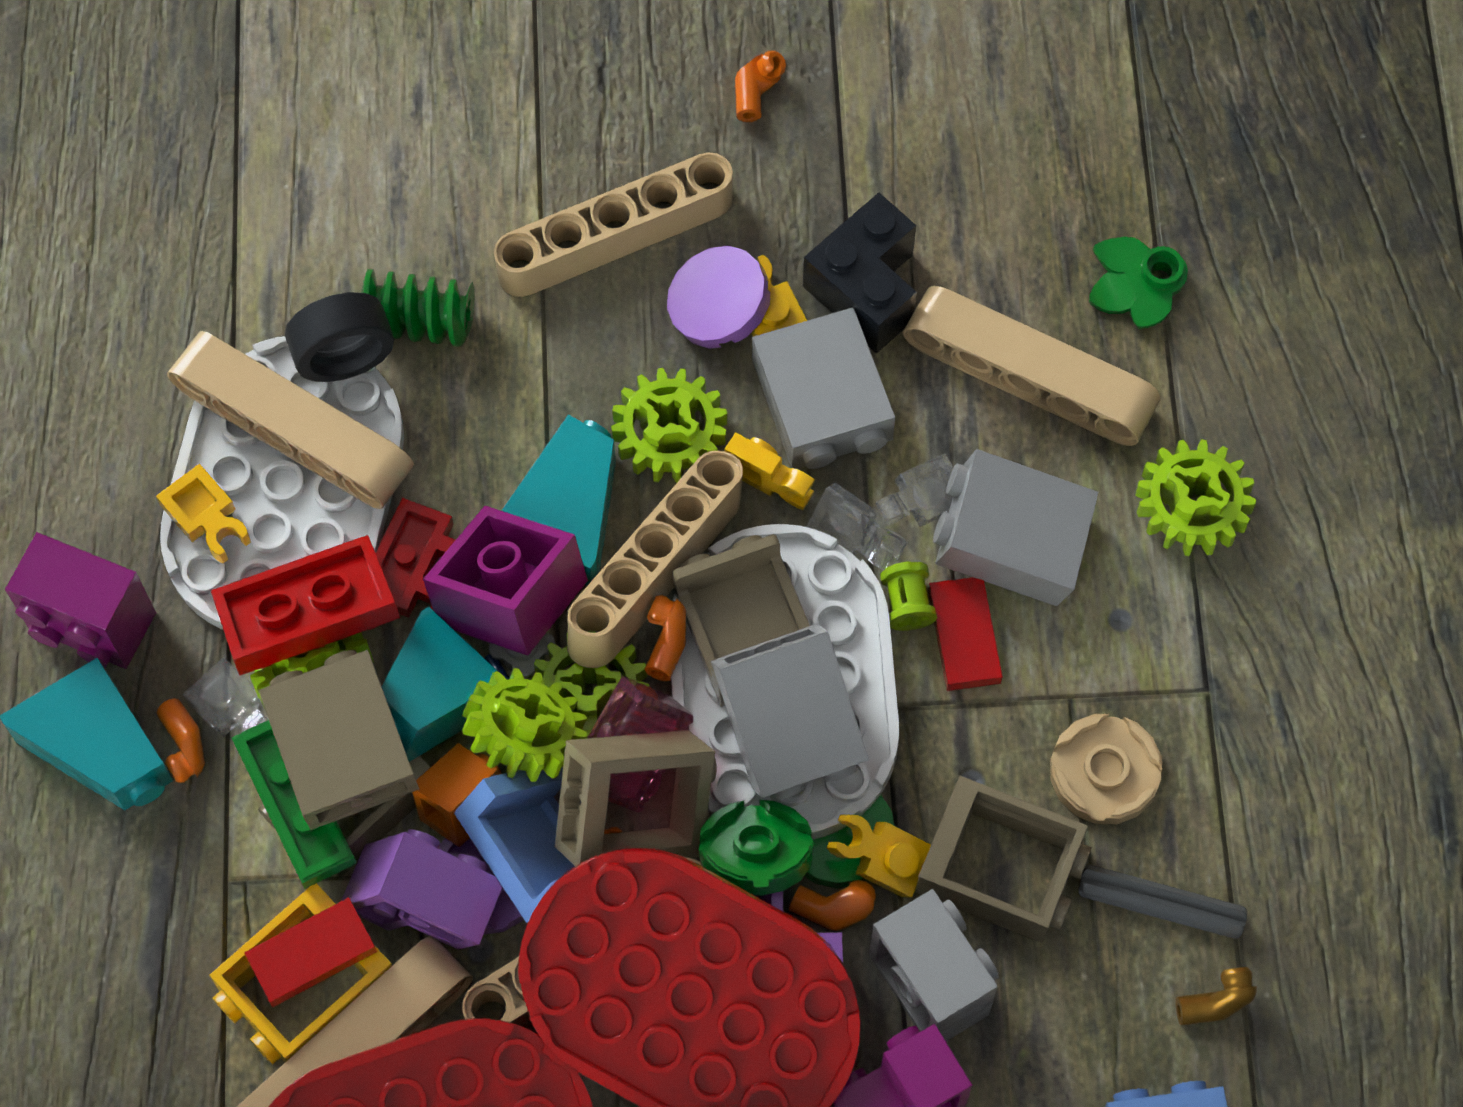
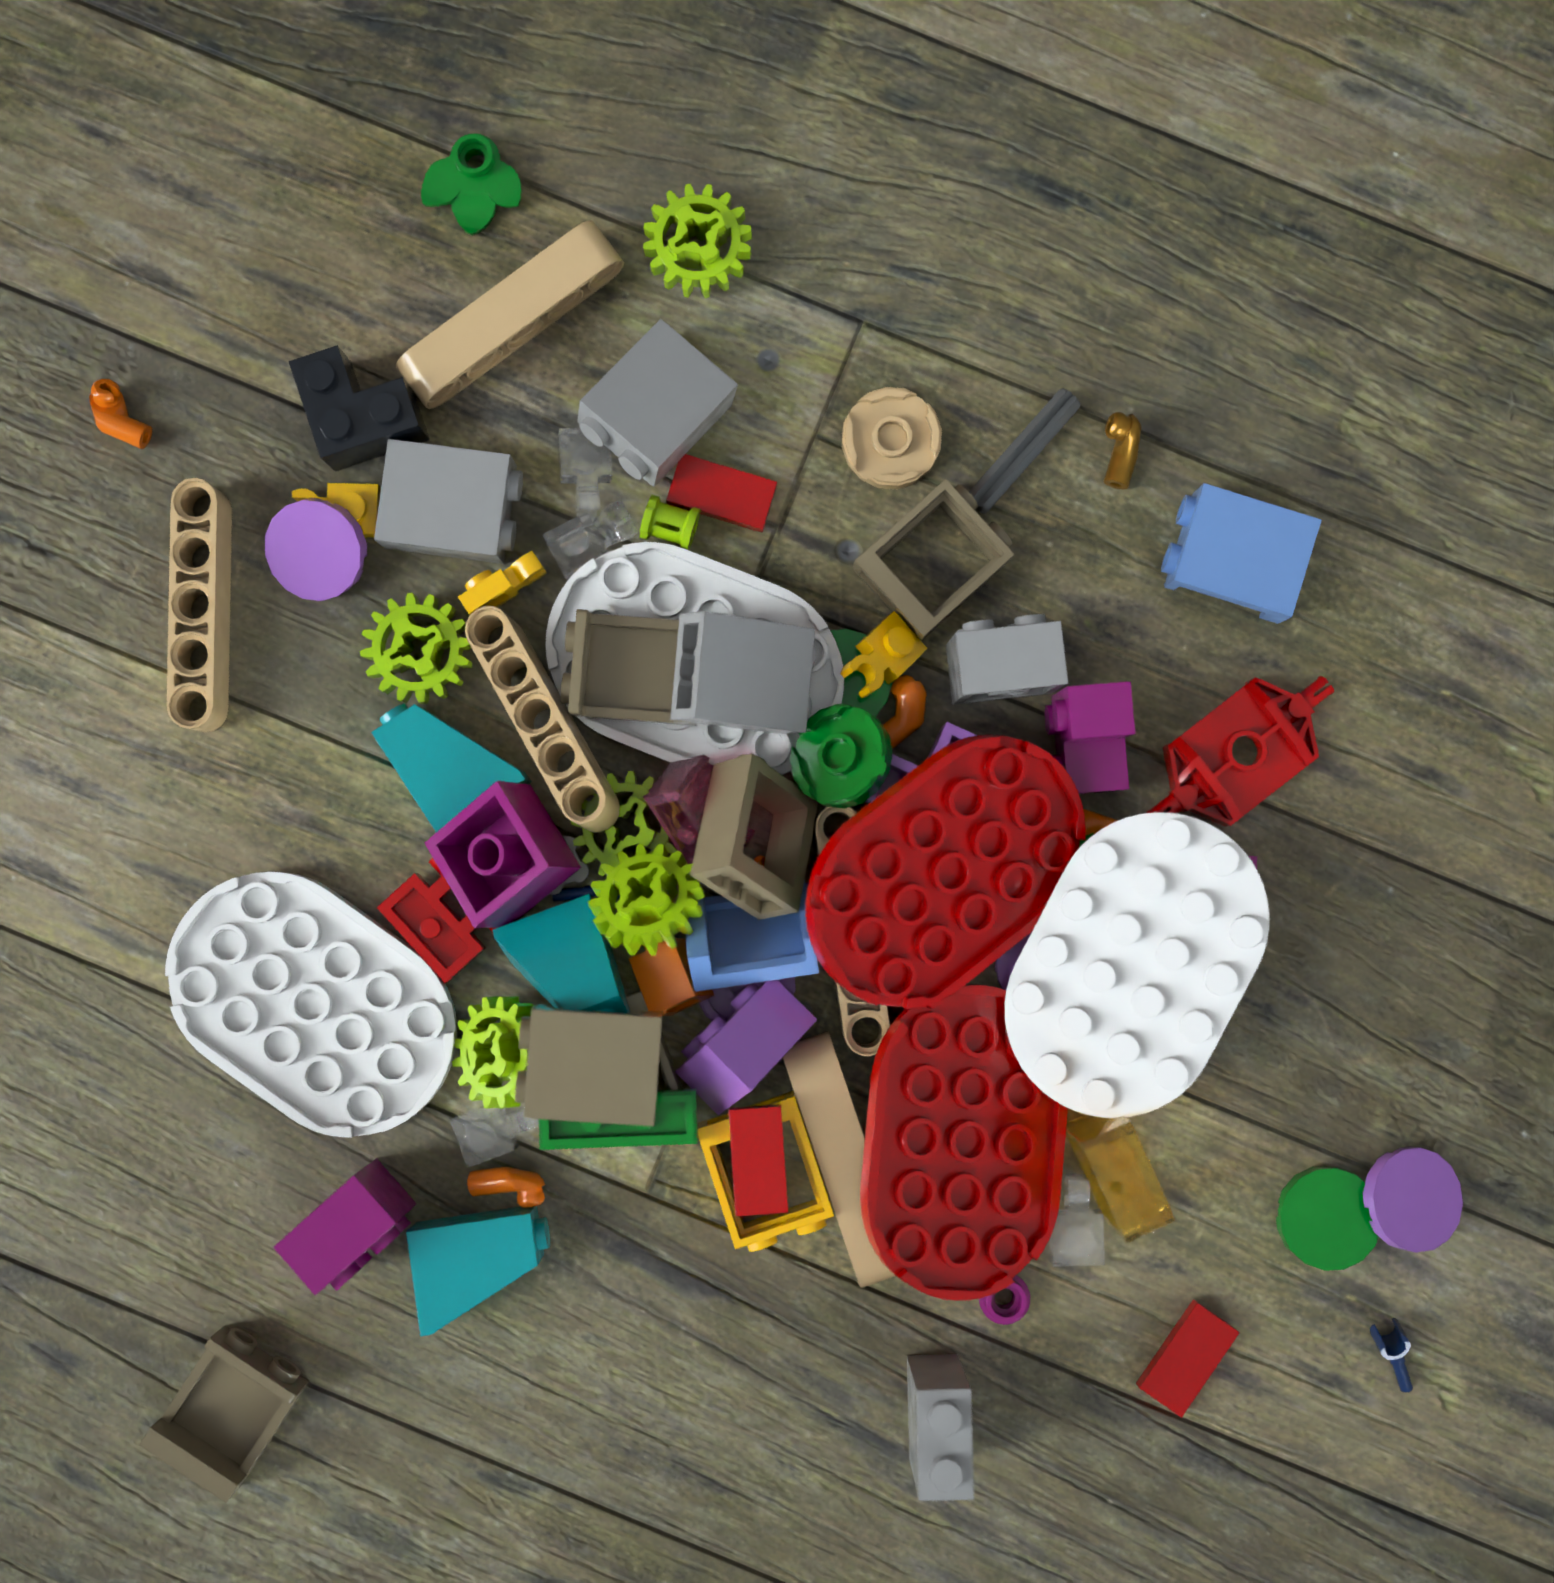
camera: 70 degrees left, 20 degrees up
(202, 507) = (307, 1087): yellow plate -> none
(290, 420) = (258, 976): tan beam -> none
(304, 605) = (446, 1037): red plate -> none
(339, 337) = (203, 901): black tyre -> none
(424, 309) = (199, 818): green piece -> none
(671, 640) = (621, 739): orange arm -> none

